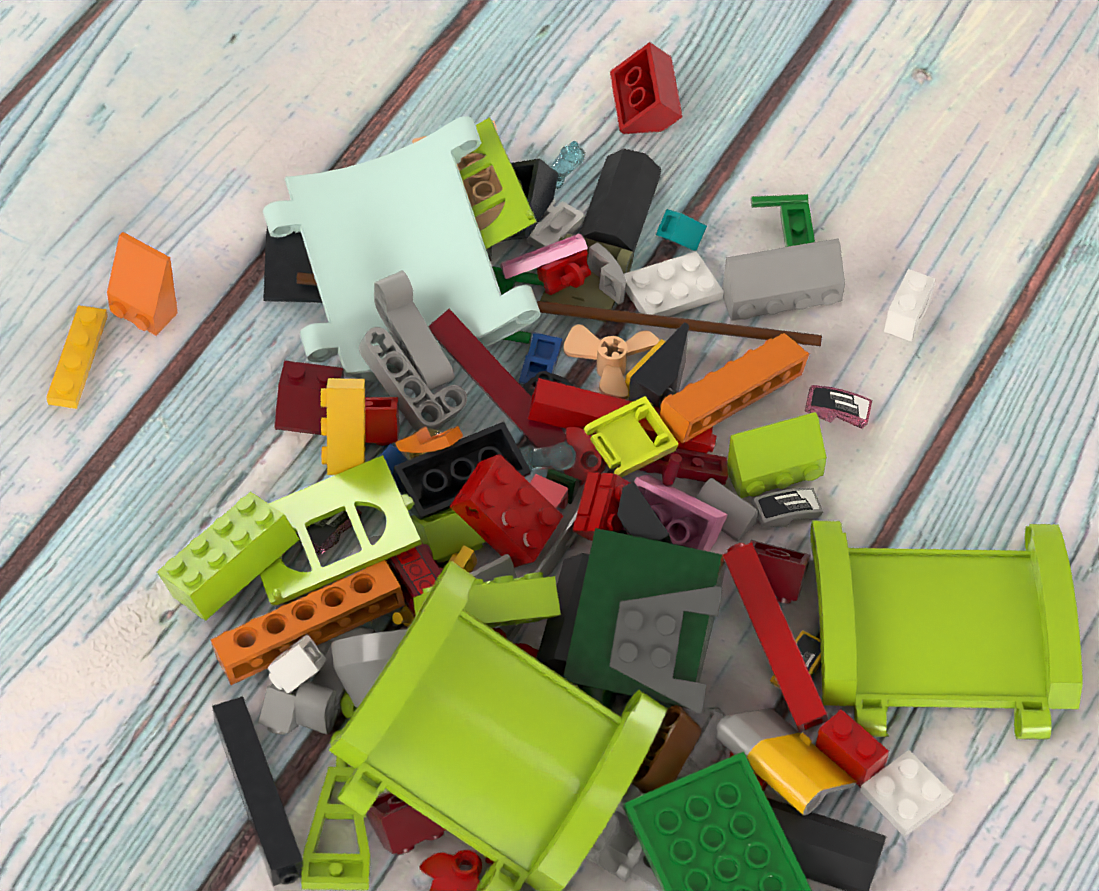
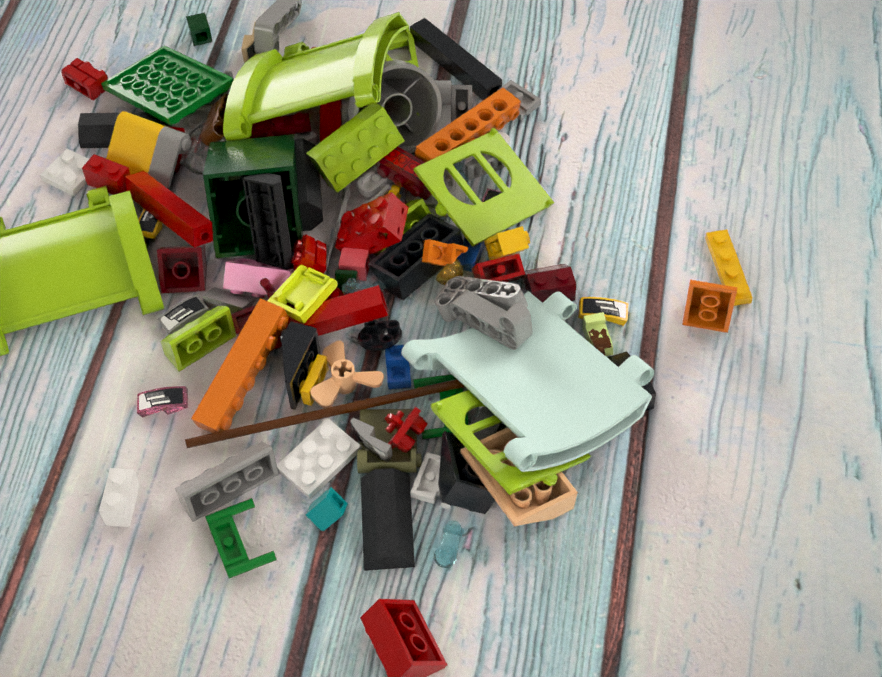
camera: 165 degrees right, 0 degrees up
(202, 685) = (529, 101): none -> light grey plate
(228, 555) = (539, 153): lime brick -> none
(263, 345) = (614, 310): none -> slope
(288, 316) = (596, 332): none -> yellowish green leg
(296, 664) = (458, 93): white brick -> none
(493, 379) = (432, 322): dark red tile -> none
(543, 256) = (417, 432): bright pink tile -> none
(649, 641) = (233, 145): dark grey wing -> none

